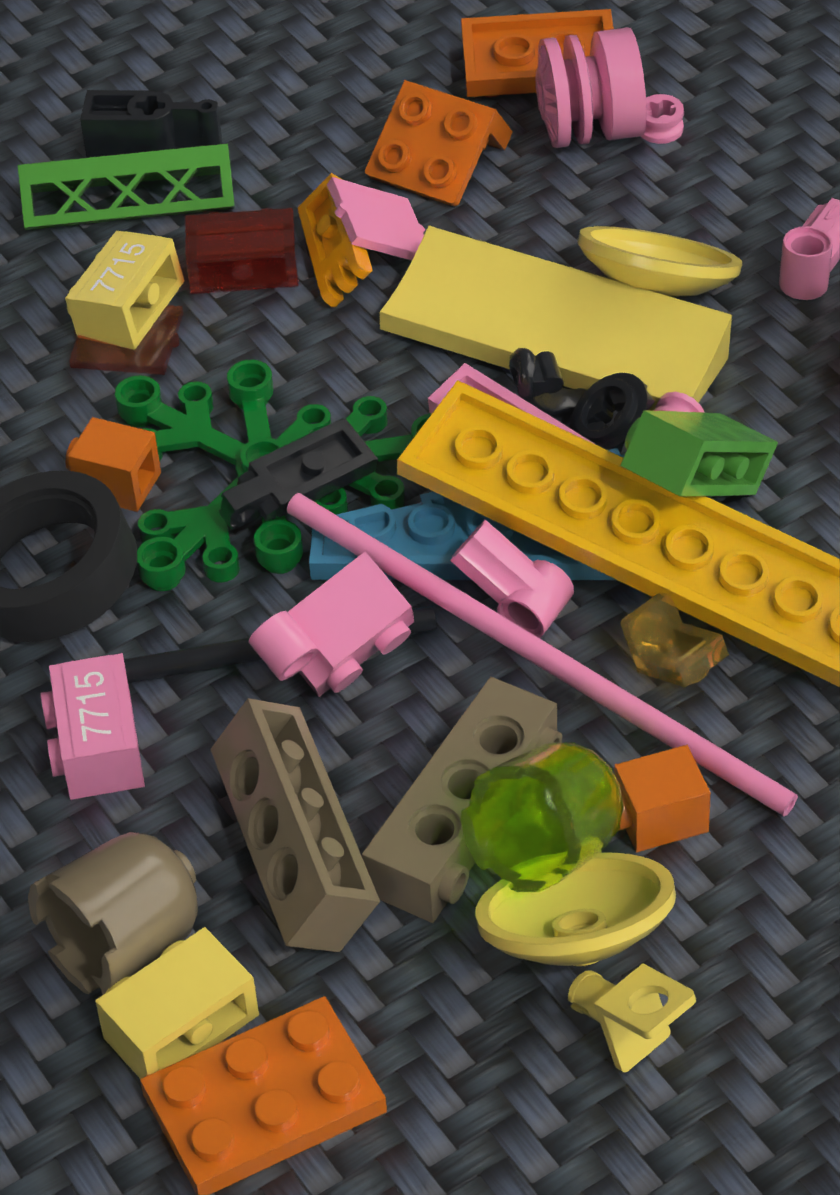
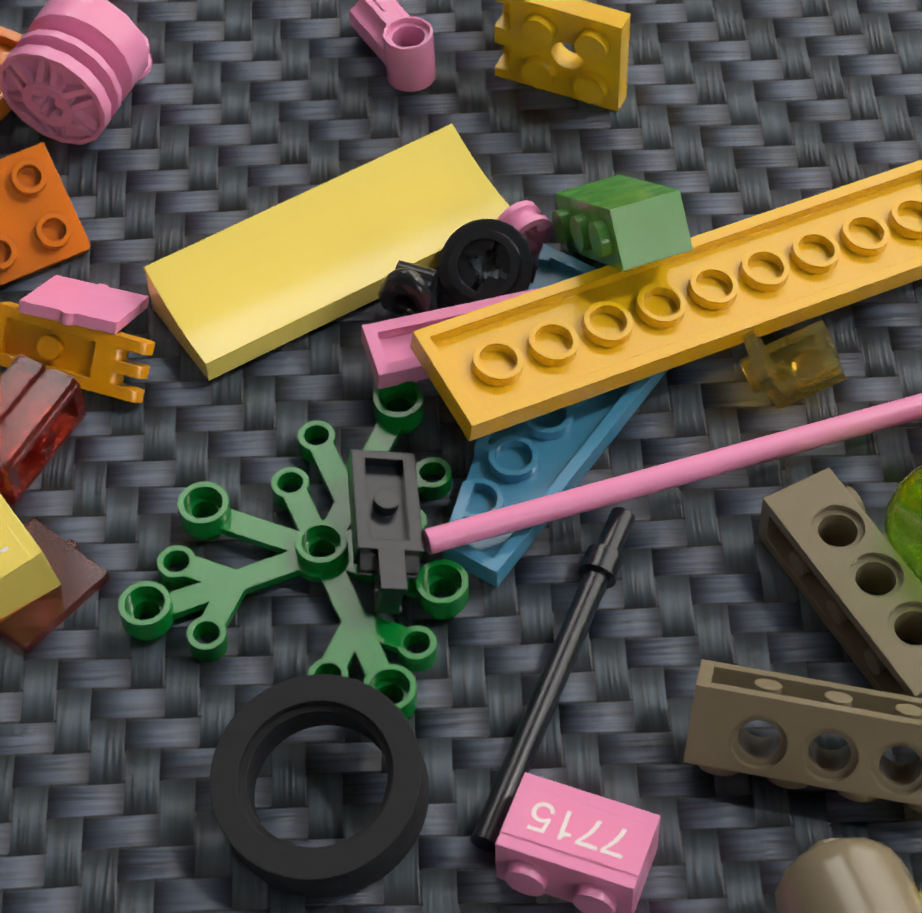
camera: 60 degrees left, 5 degrees up
(119, 458) = (223, 669): orange brick -> none
(336, 628) = (615, 580): bright pink hinge -> none
(526, 589) = (646, 428): bright pink piece -> none
(658, 260) = (332, 137): light yellow dish -> none

